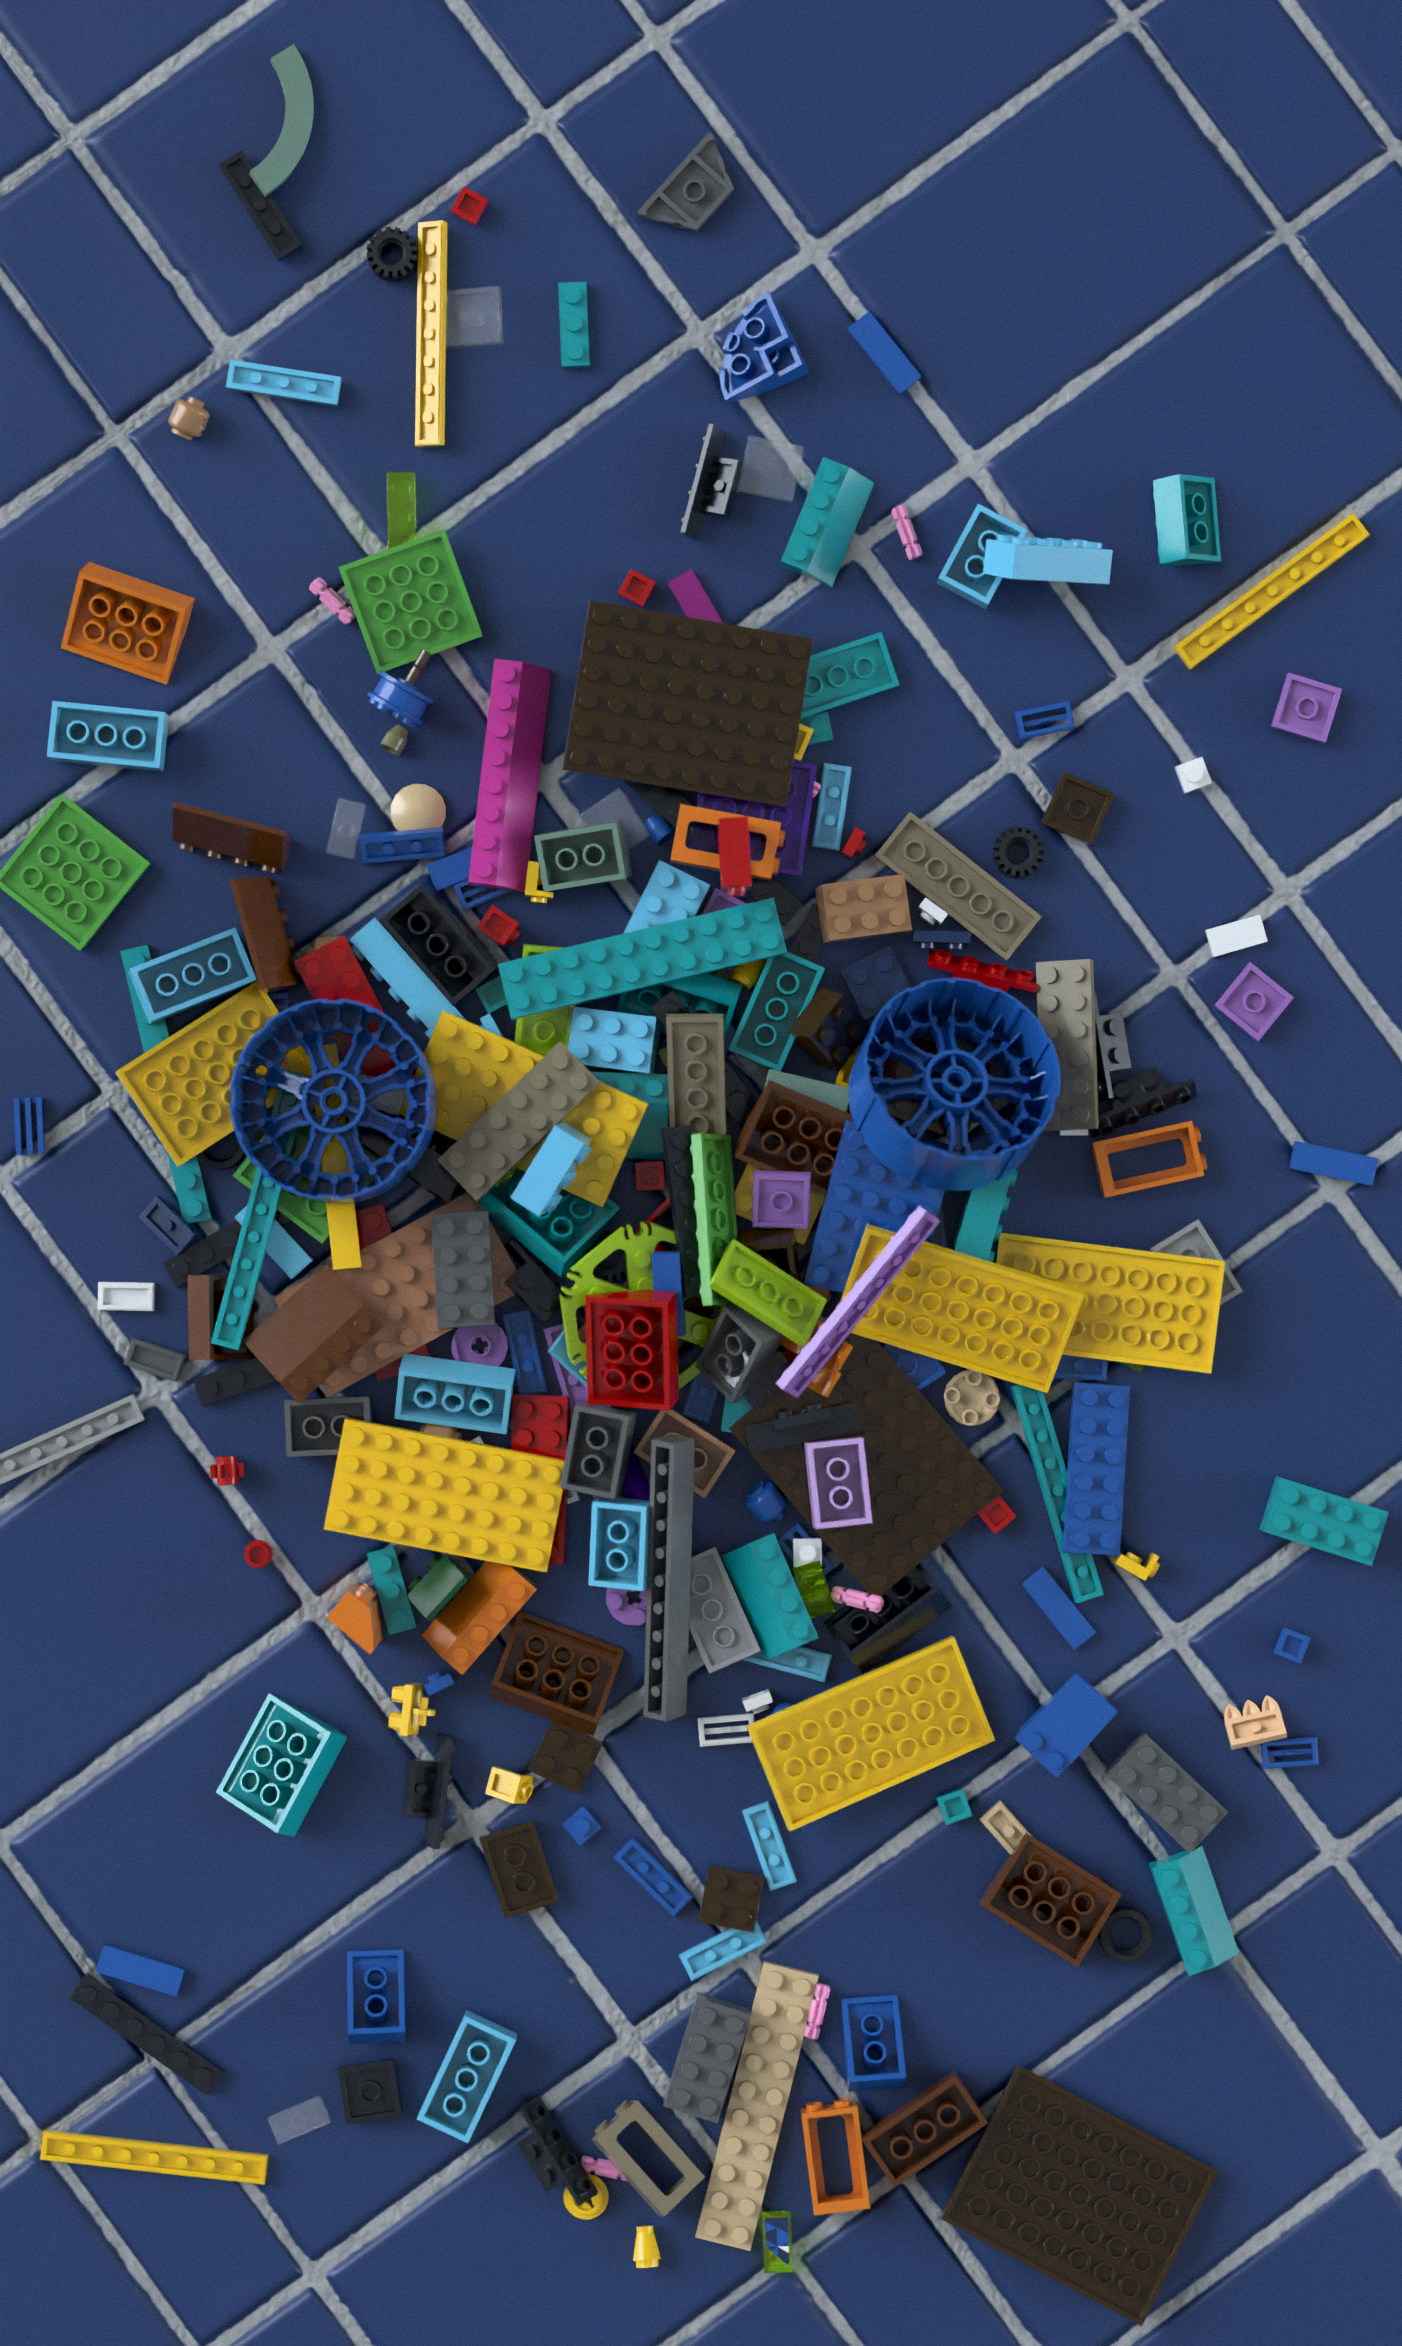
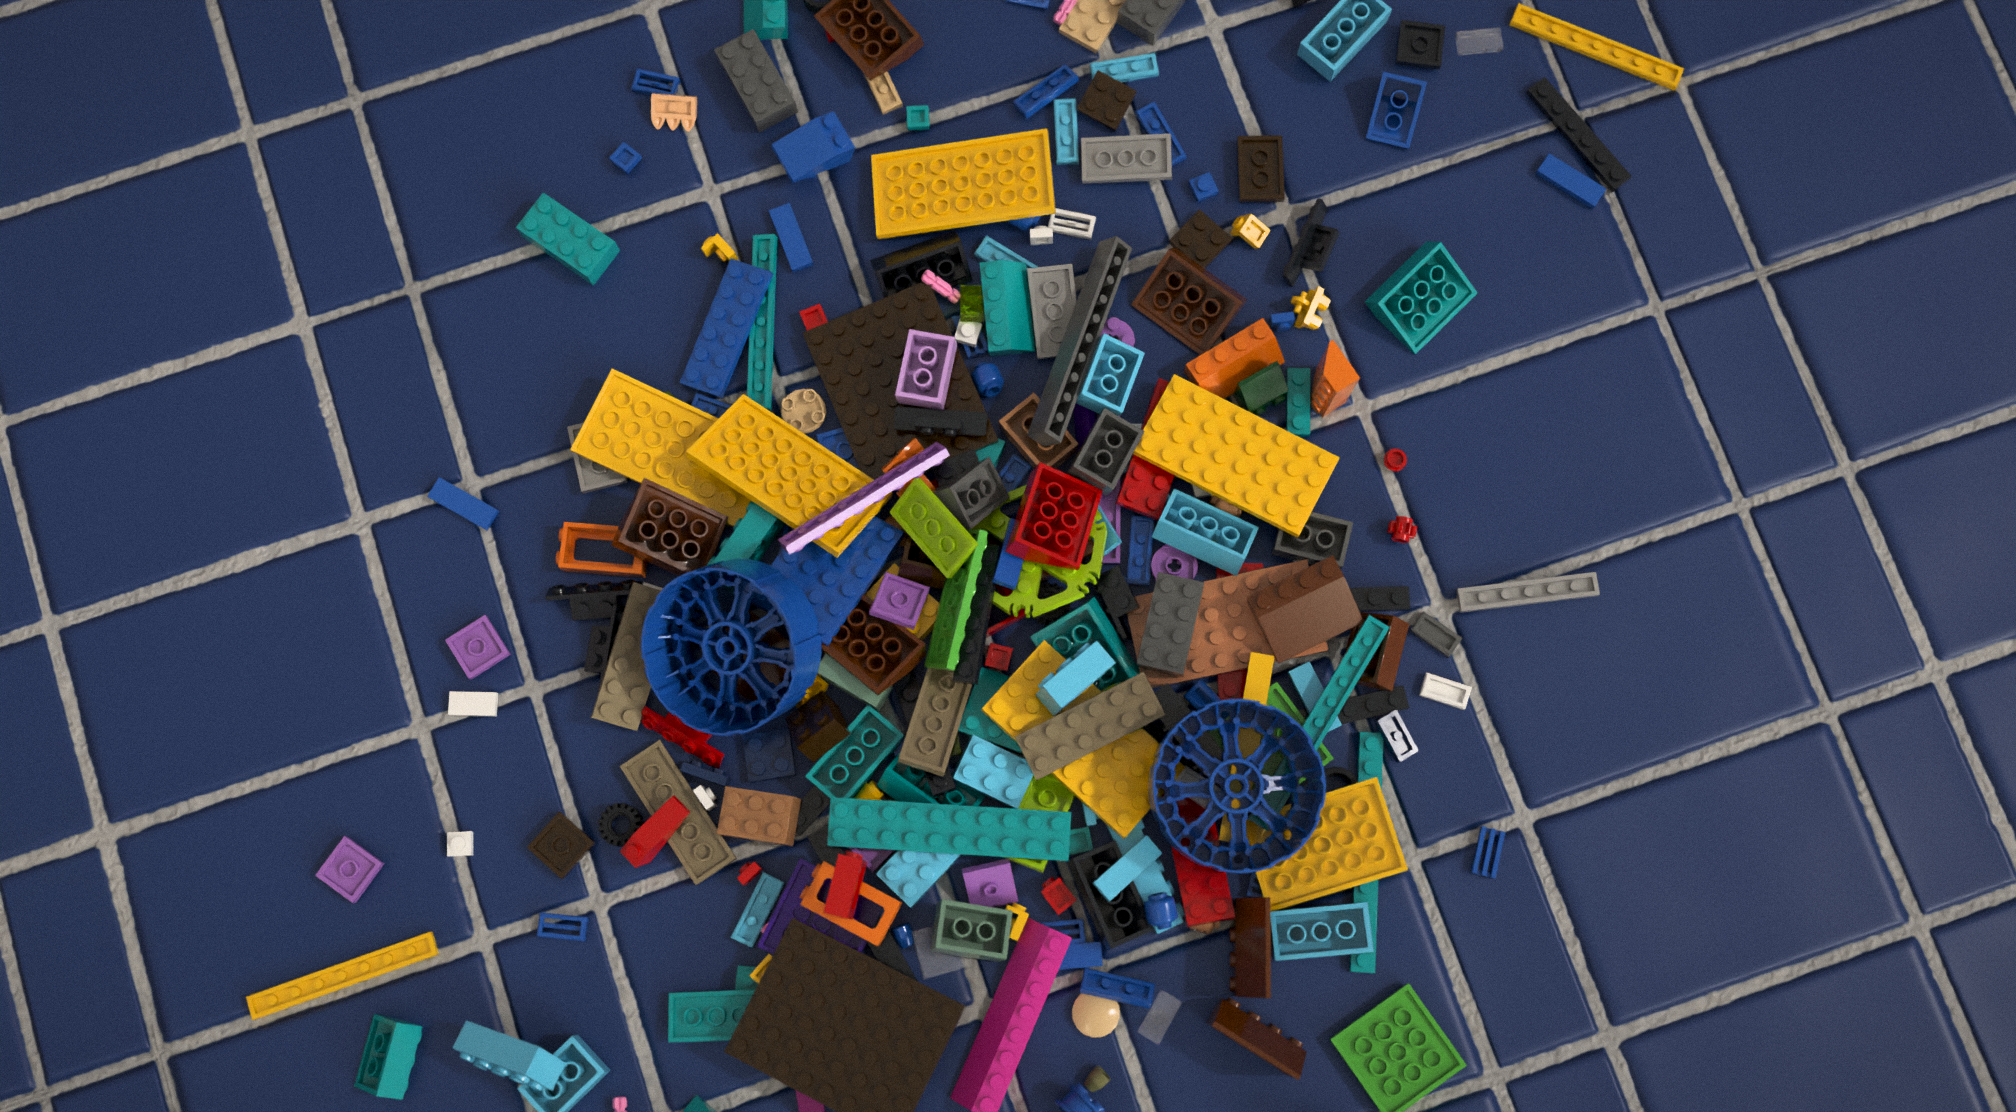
camera: 165 degrees left, 10 degrees down
(378, 942) = (1160, 910): none -> blue head
(399, 1201) = (1202, 695): none -> blue tile
(429, 977) = (1127, 868): none -> medium azure tile
(578, 914) = (990, 884): none -> medium lavender plate
(684, 1830) = (1126, 158): none -> light grey plate
(809, 1889) = (1045, 91): none -> blue tile
(973, 853) = (654, 833): none -> red slope
(1074, 1201) = (669, 529): none -> reddish brown slope

